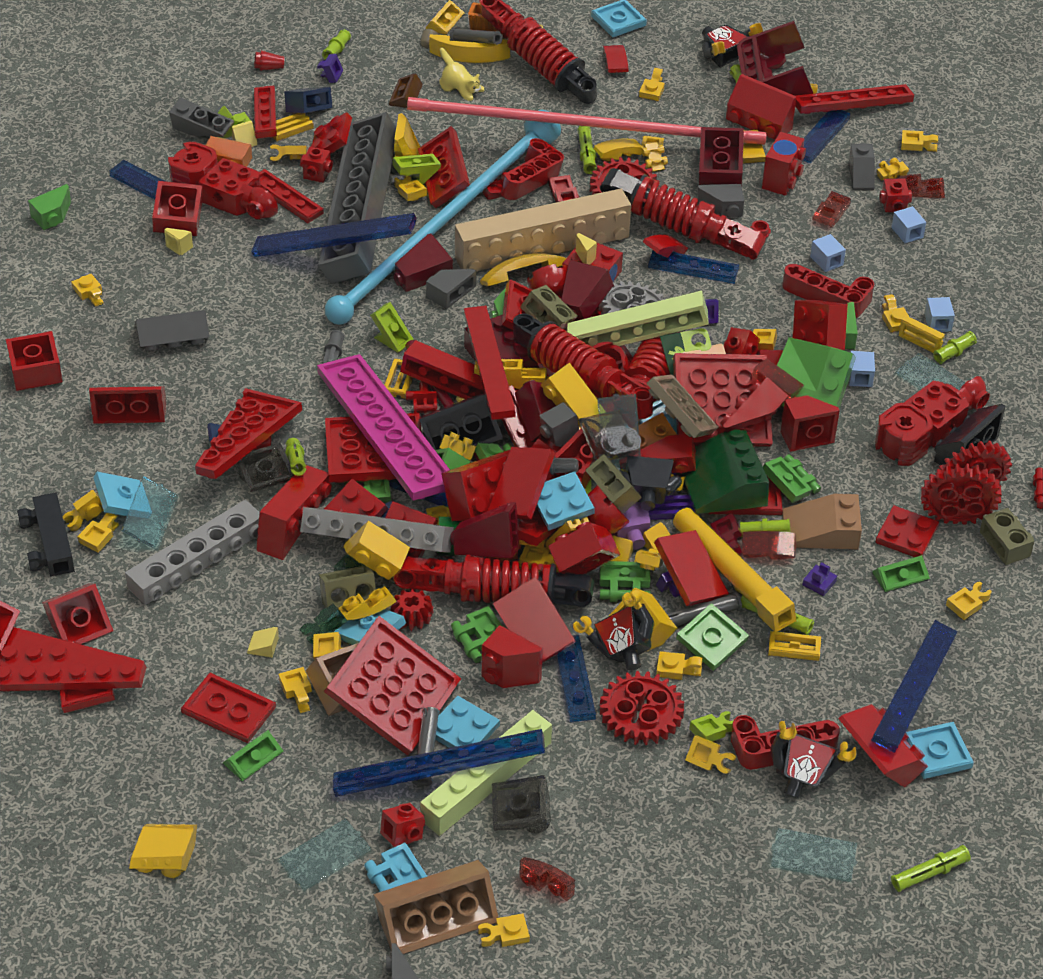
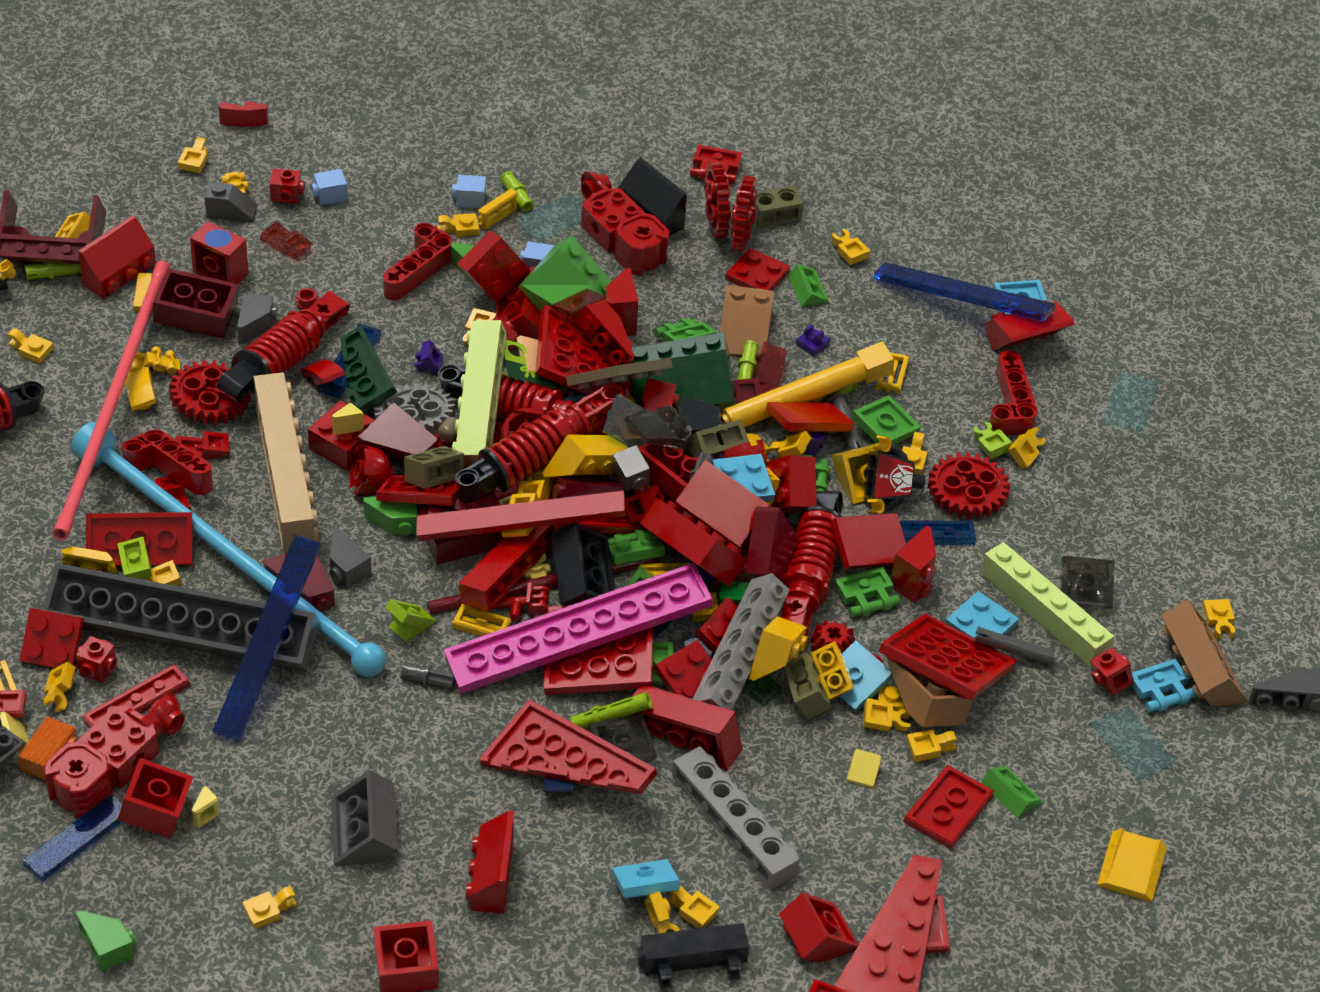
camera: 85 degrees left, 0 degrees up
(149, 513) = (670, 856): clear light blue piece -> none
(326, 622) = (847, 710): clear green plate -> none
(438, 762) = (1049, 631): clear blue tile -> none
(463, 447) = (615, 574): yellow piece -> none
(499, 273) = (327, 495): yellow slope -> none
(540, 874) = (1170, 572): clear red slope -> none
(588, 162) = (136, 416): lime pin -> none
(668, 268) = (364, 371): none -> dark green wing
(805, 759) = (1045, 378): torso -> none
(824, 132) = (157, 226): clear blue tile -> none
(827, 253) = (359, 253): light blue brick -> none
(853, 99) = (115, 183): red plate -> none
(925, 188) = (263, 168): clear red slope -> none
(957, 856) = (1145, 322): lime pin -> none
(984, 161) = (249, 115): none -> red slope

